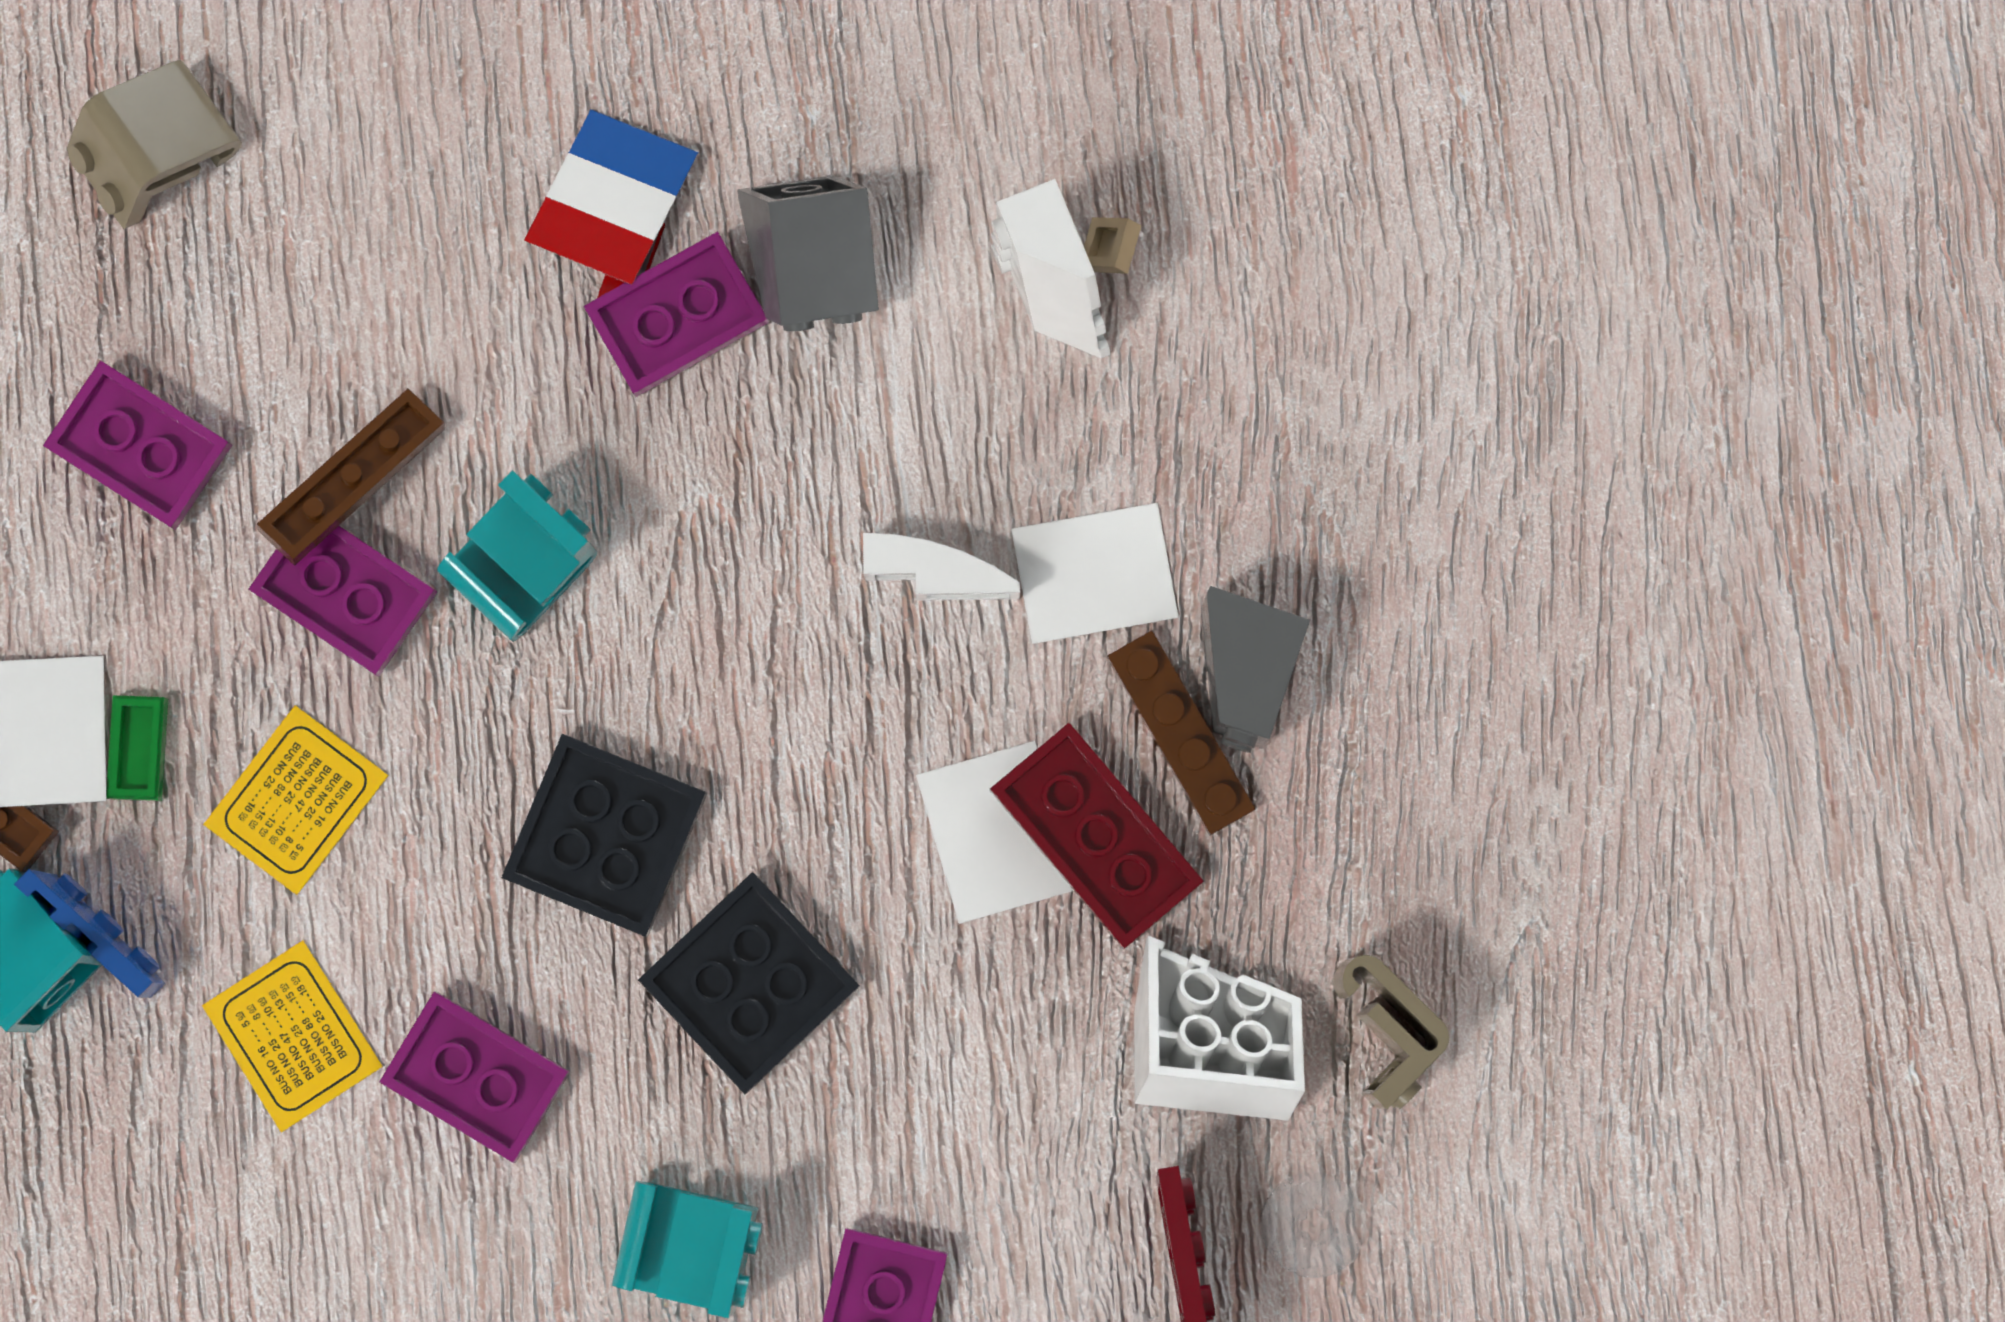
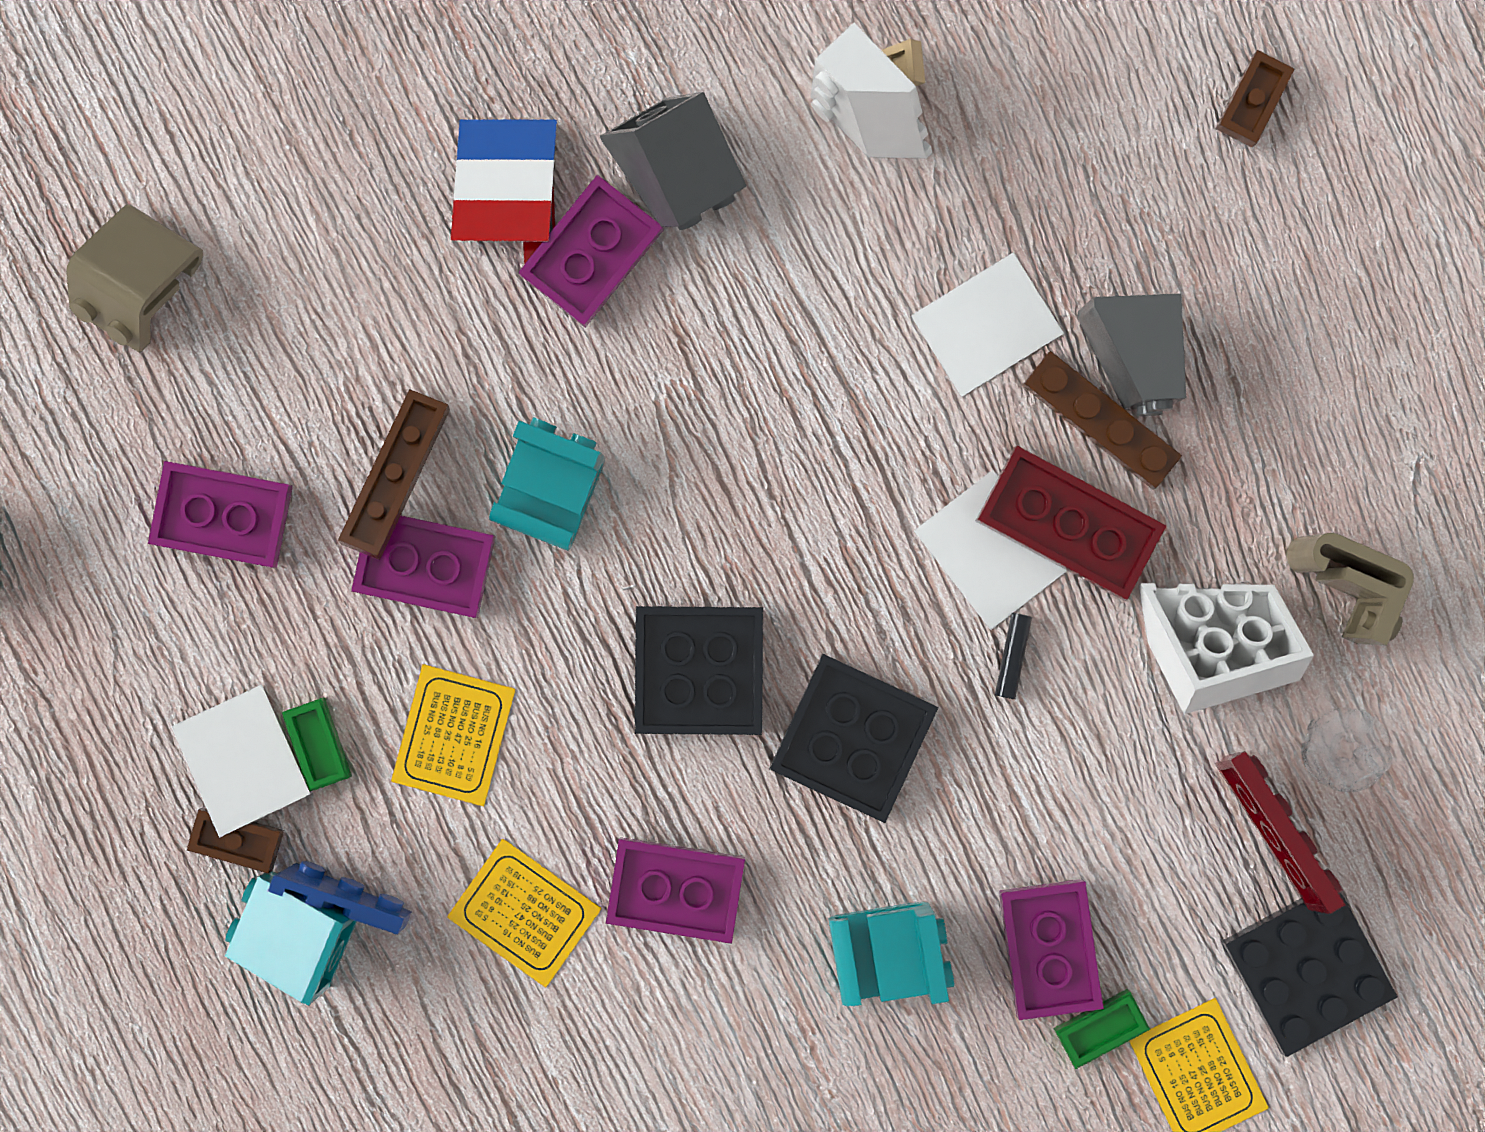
camera: 20 degrees left, 5 degrees up
(937, 568) = (868, 368): white slope -> none
(971, 962) = (1013, 656): none -> black piece
(1498, 436) = (1255, 98): none -> reddish brown plate

